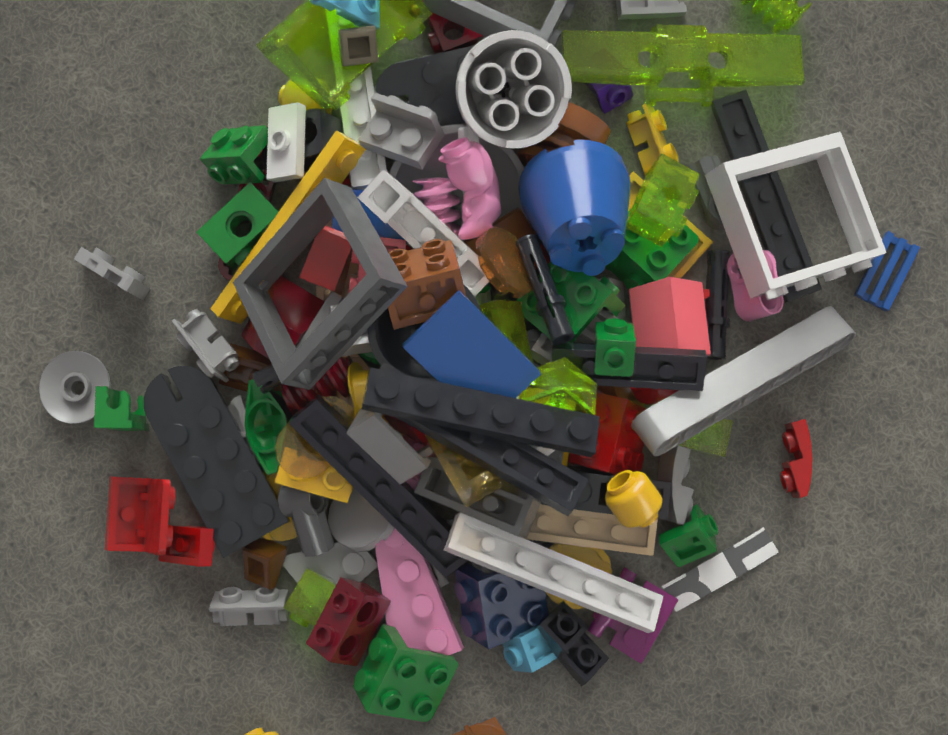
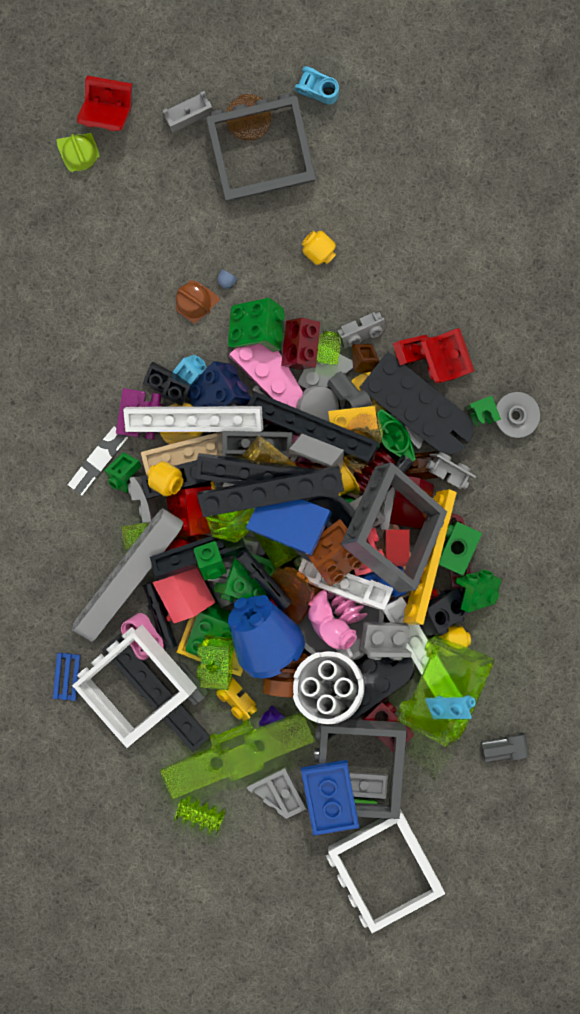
camera: 160 degrees right, 5 degrees up
(102, 264) = (533, 493): light grey wing -> none
(286, 142) = (451, 607): white plate -> none
(358, 45) = (433, 683): dark tan slope -> none
(797, 472) = (75, 535): red slope -> none

